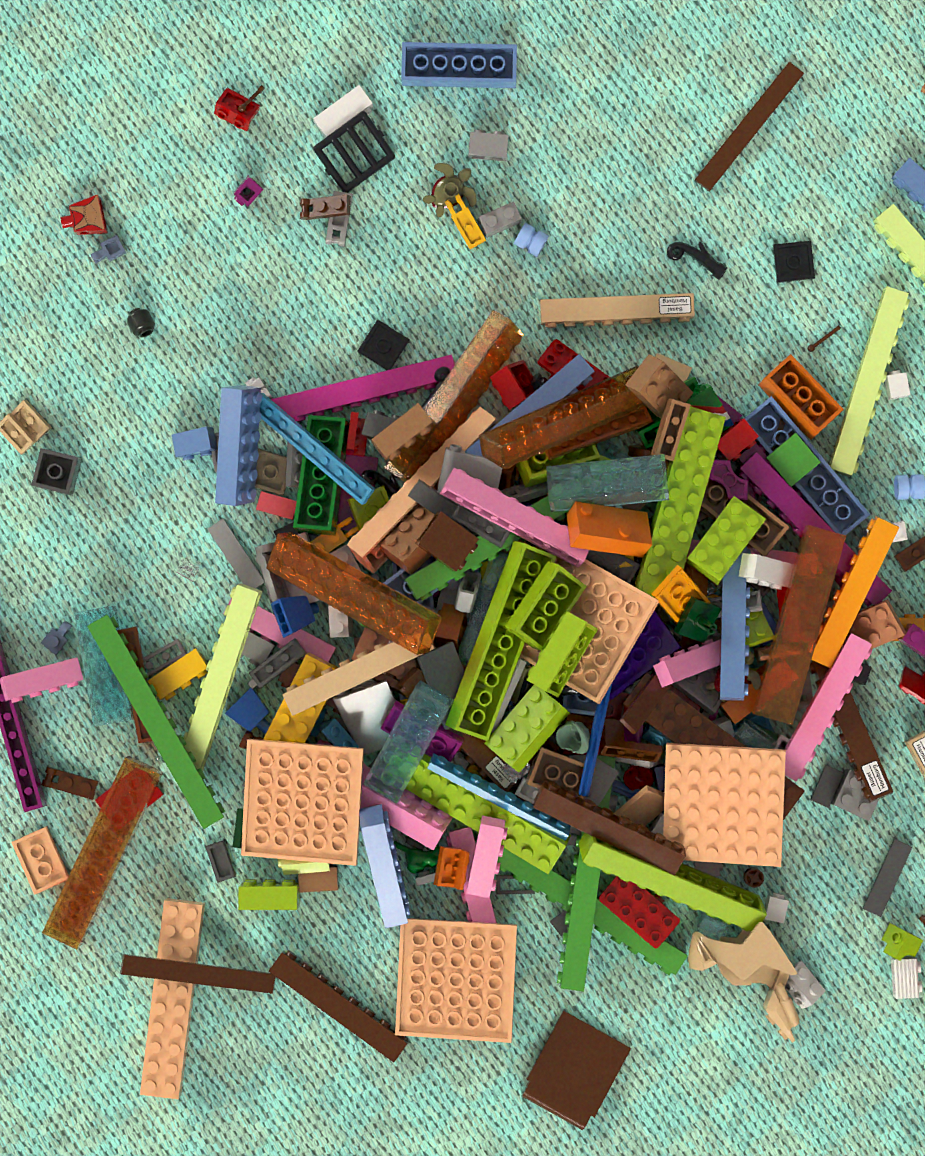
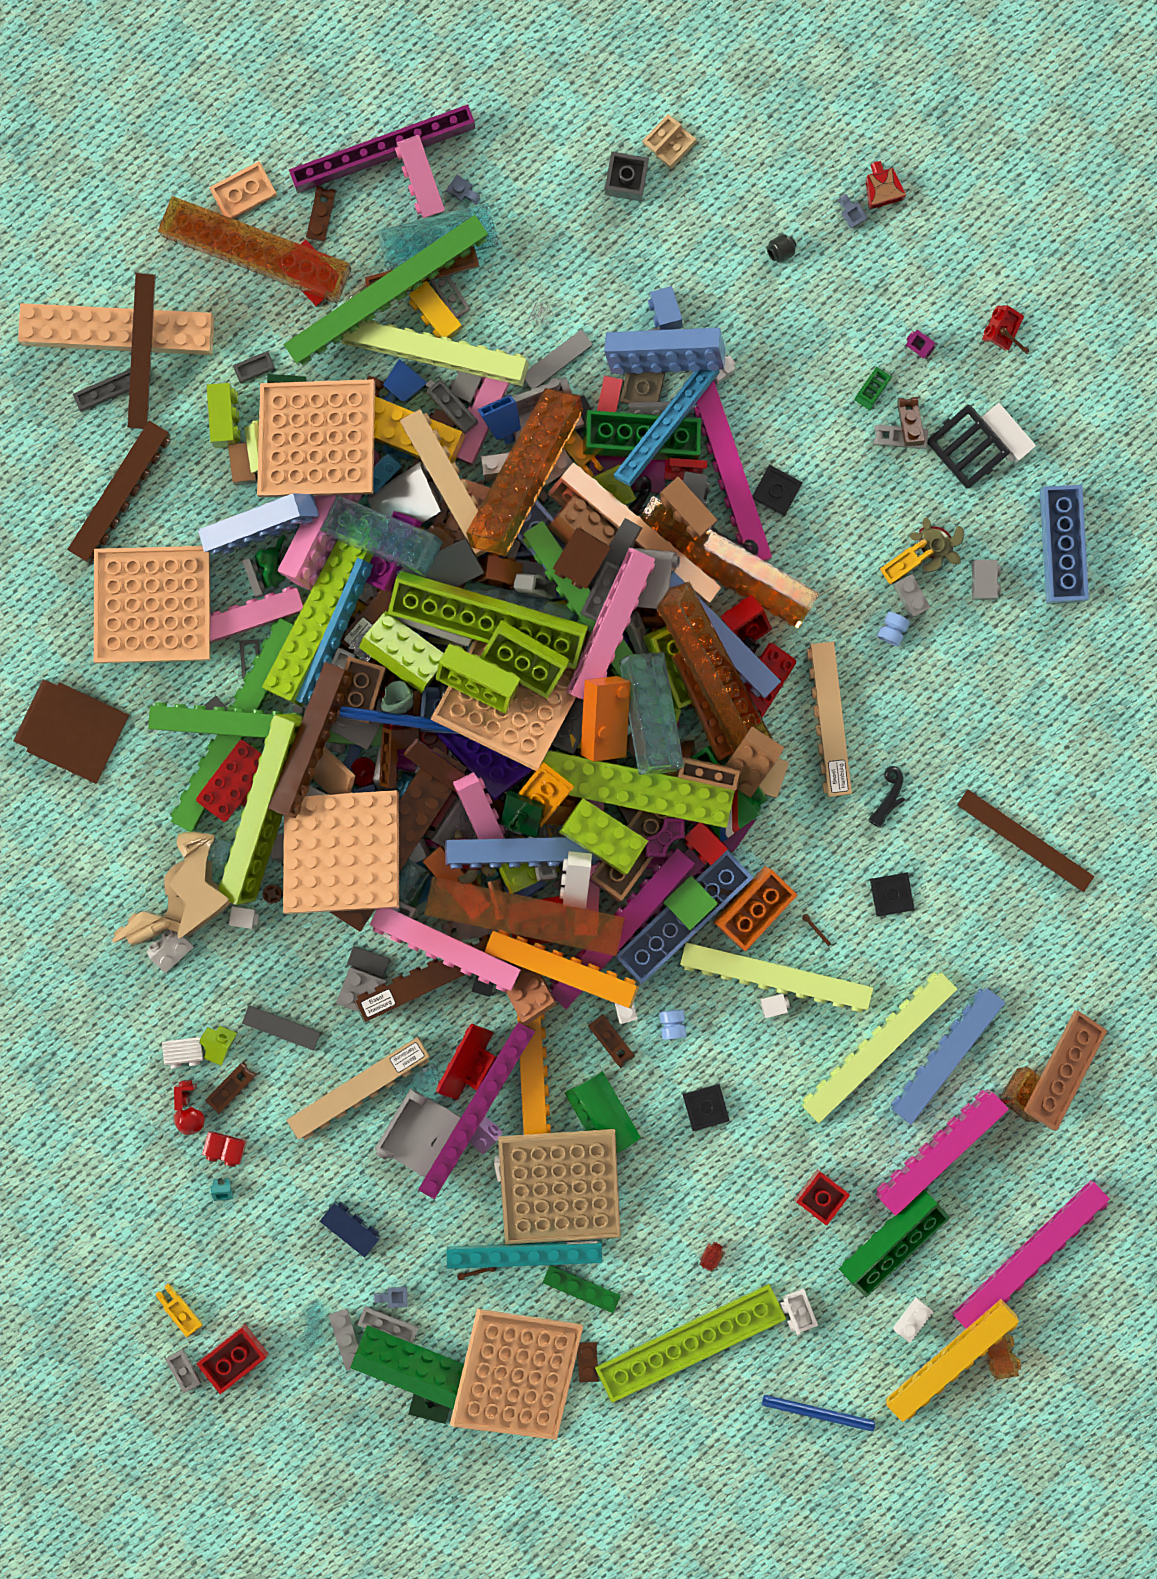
camera: 80 degrees right, 0 degrees up
(233, 1015) = (103, 391): none -> dark grey tile
(301, 250) = (867, 399): none -> green slope
(451, 867) = (262, 591): orange bracket -> none
(485, 857) = (275, 623): bright pink brick -> none

